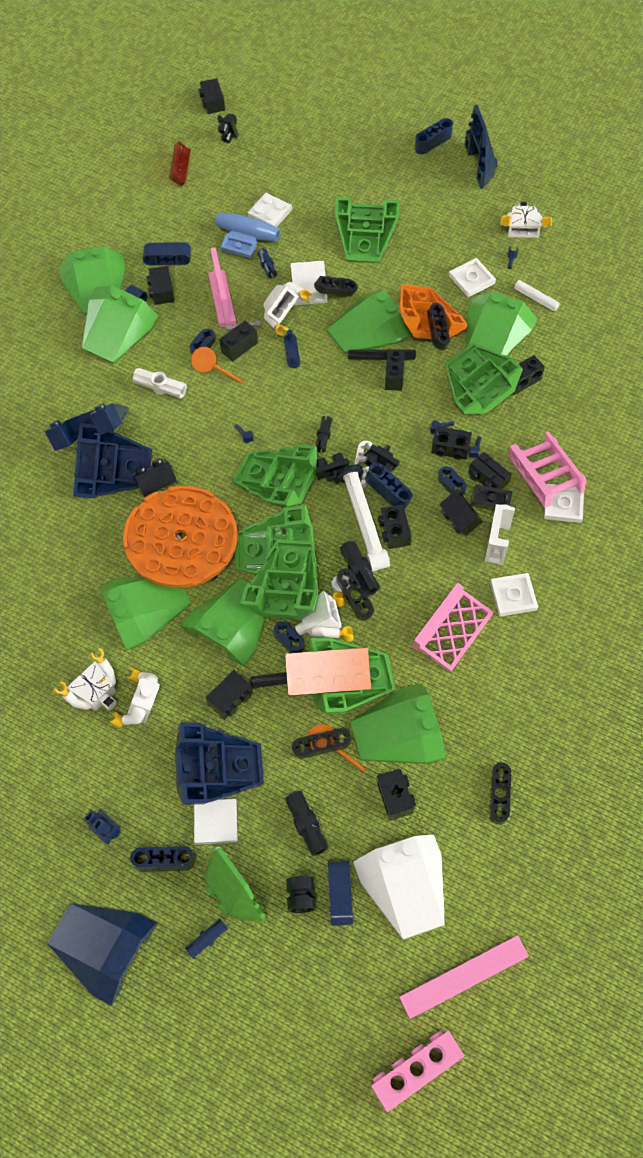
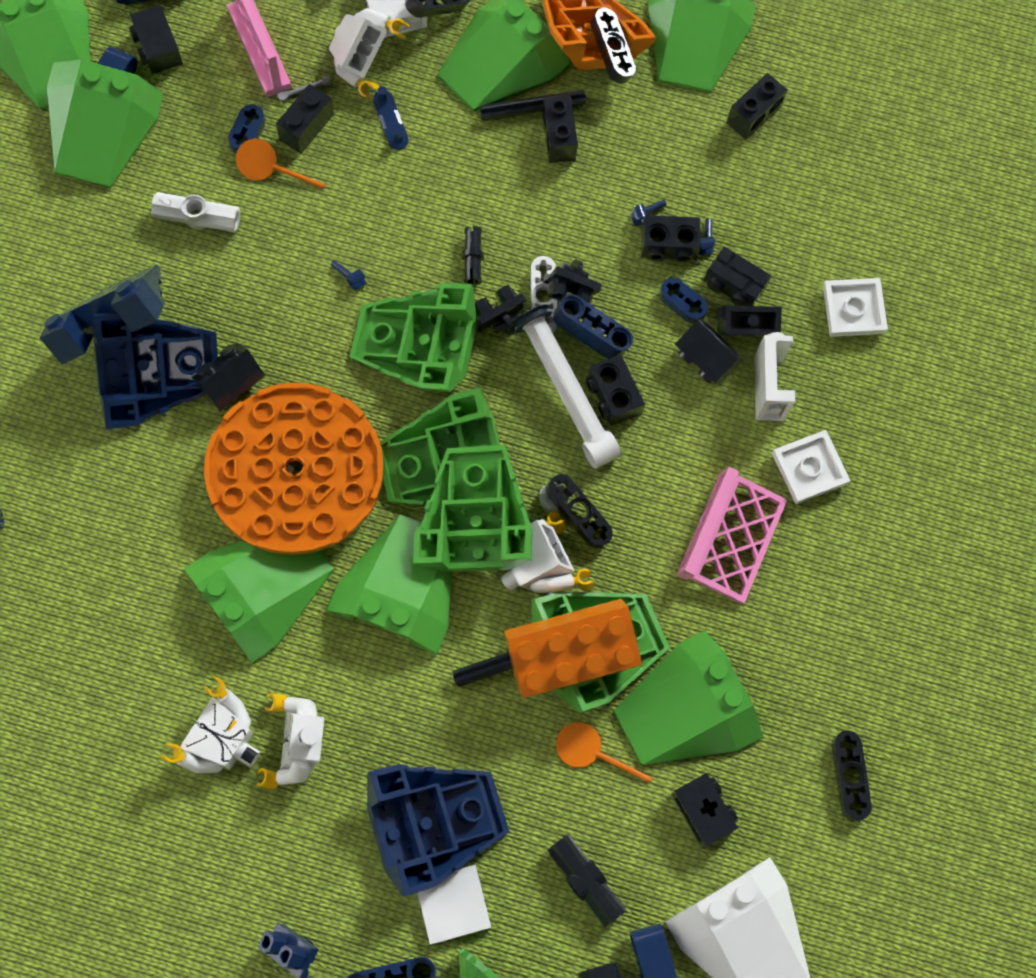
camera: 20 degrees left, 10 degrees up
(229, 695) = (428, 706): black brick -> none
(291, 635) = (499, 592): dark blue beam -> none
(314, 738) = (563, 770): black beam -> none
(360, 567) = (577, 465): black piece -> none
(481, 378) = (694, 123): bright green wedge -> none
(537, 481) = (810, 280): bright pink fence -> none

